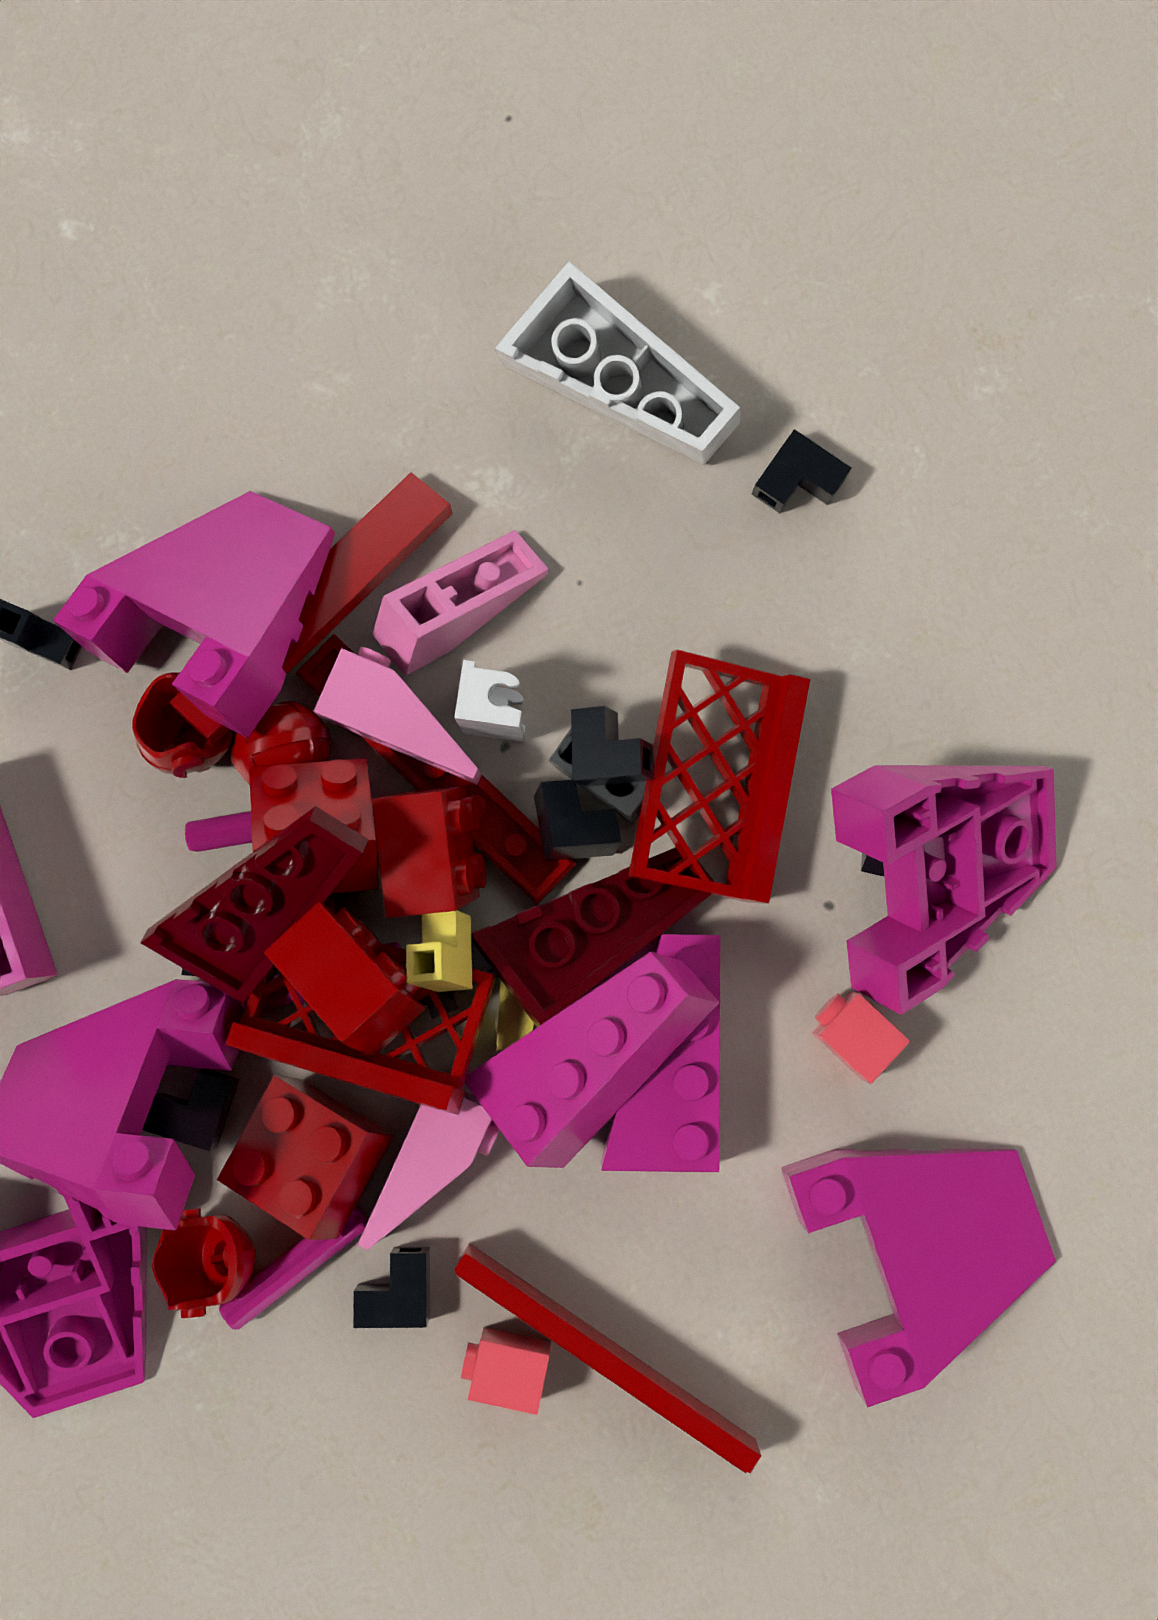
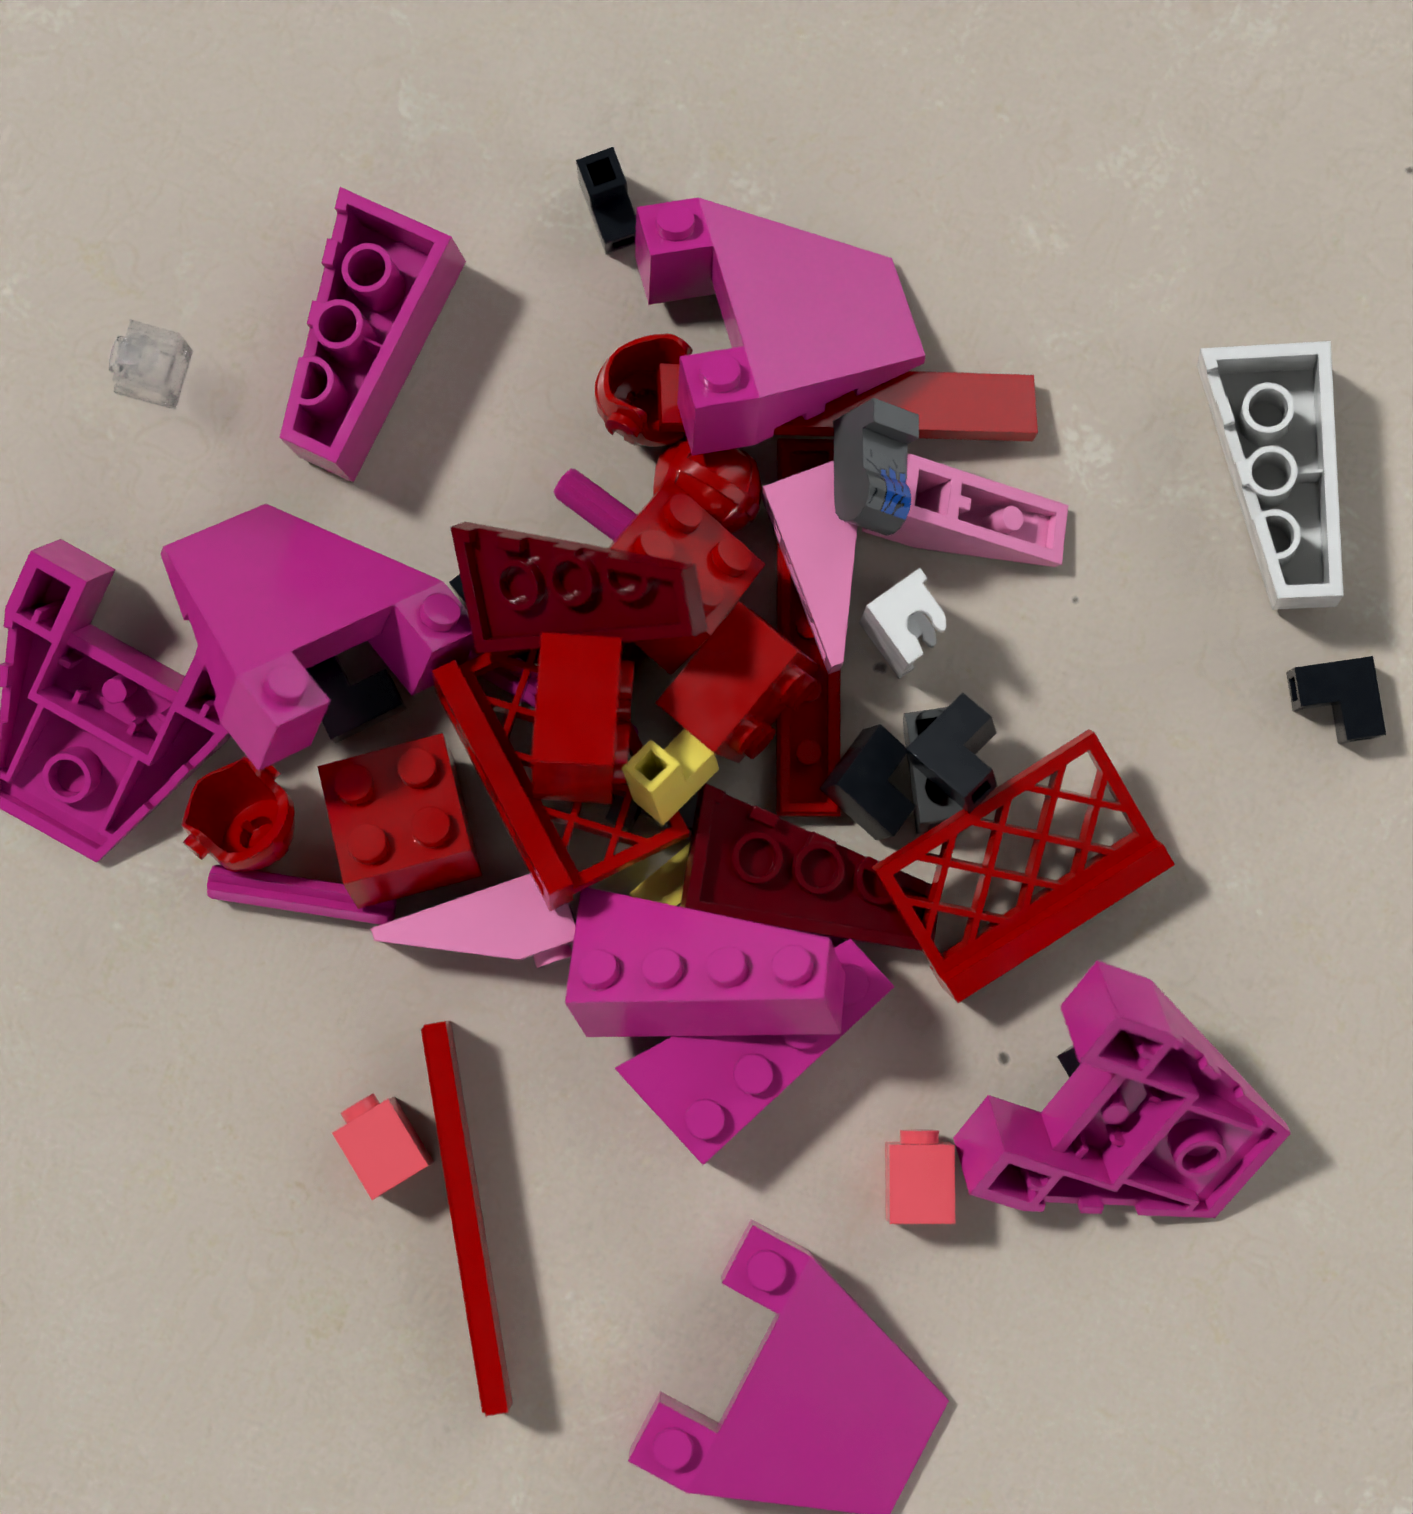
camera: 40 degrees right, 0 degrees up
(367, 626) = (873, 465): none -> dark grey leg
(404, 1300) = (355, 1009): black piece -> none

